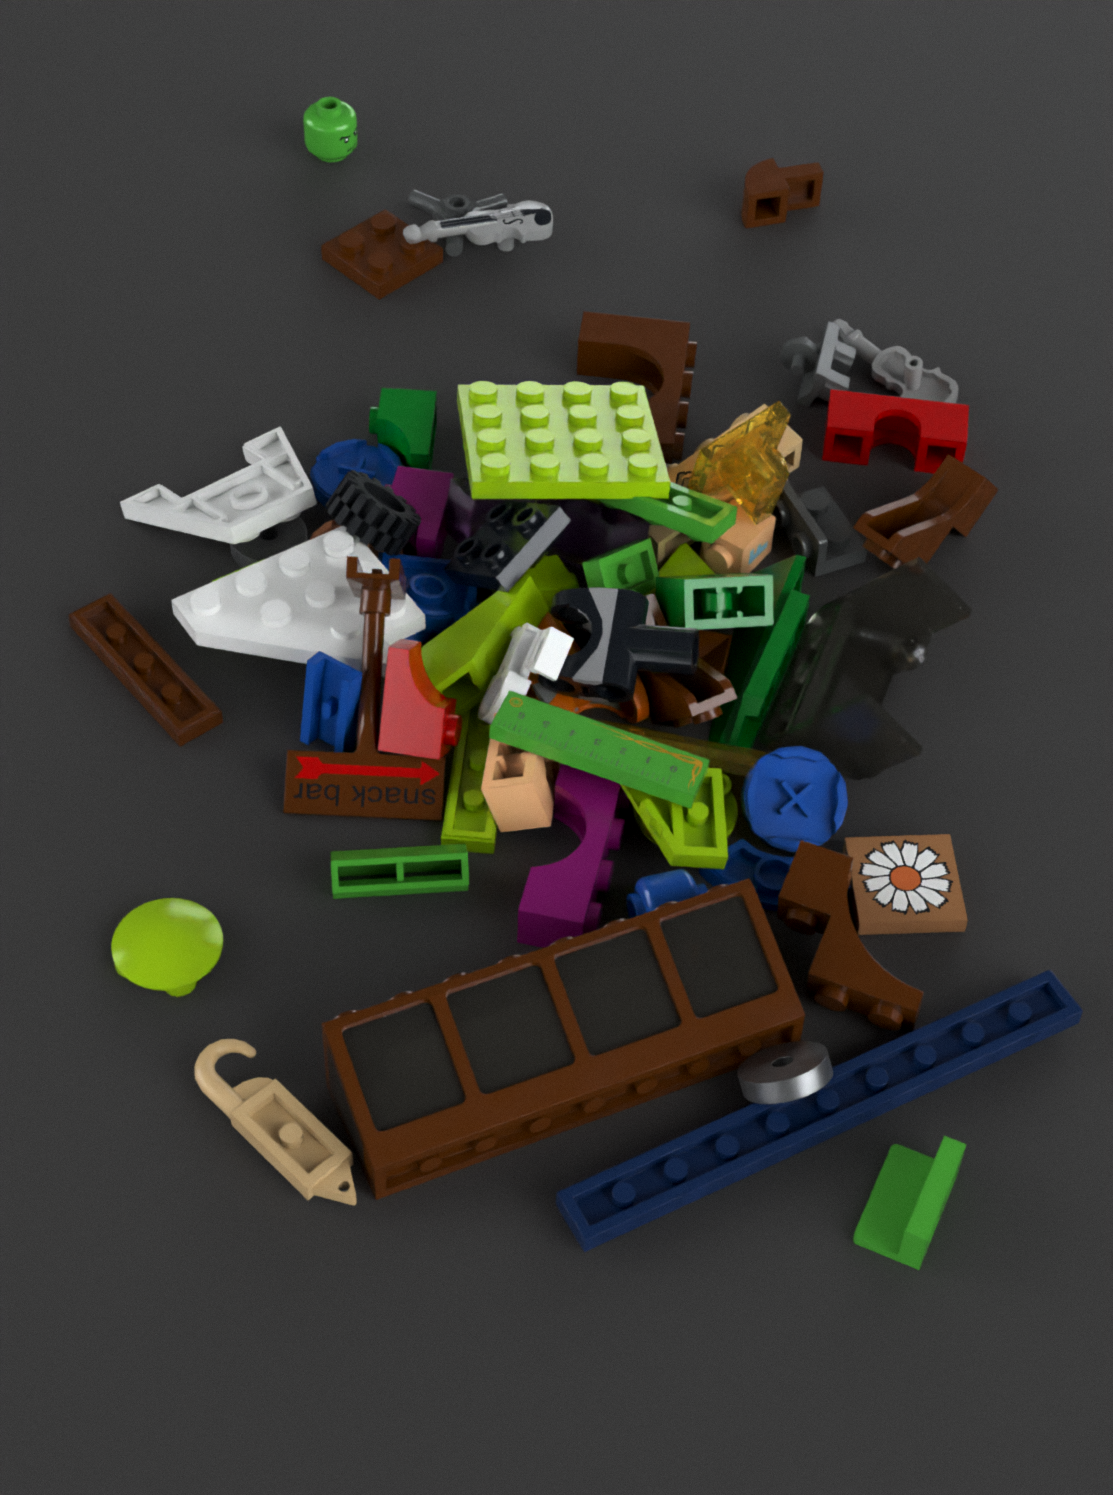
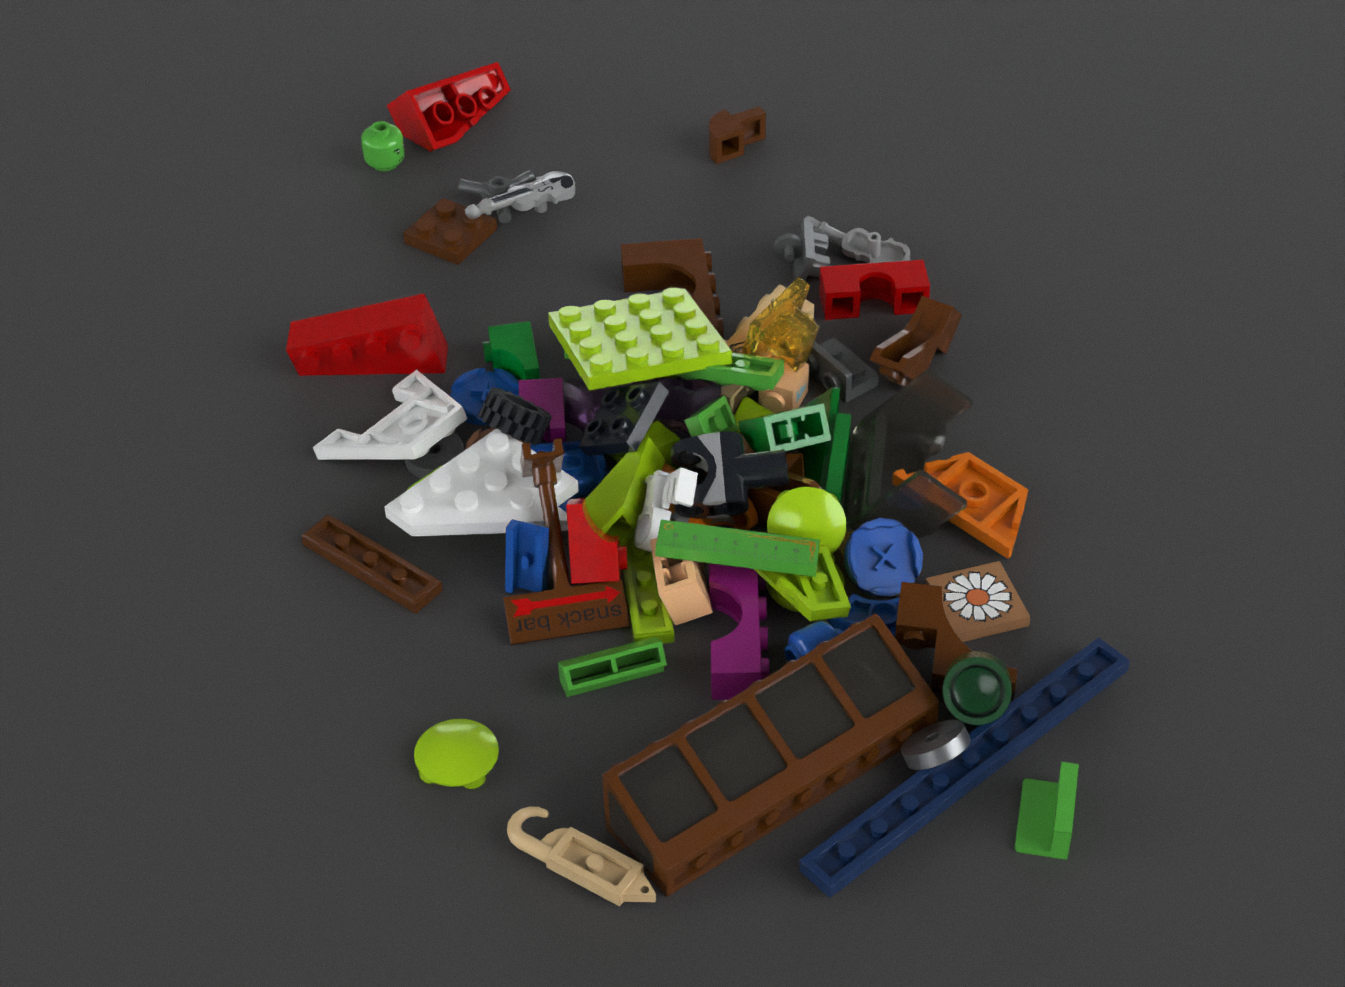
camera: 10 degrees left, 5 degrees down
(233, 377) = (370, 340): none -> red wedge
(426, 95) = (448, 108): none -> red wedge
(705, 724) = (808, 514): none -> lime dish
(859, 1008) = (977, 688): none -> dark green piece
(961, 743) = (992, 499): none -> orange wing

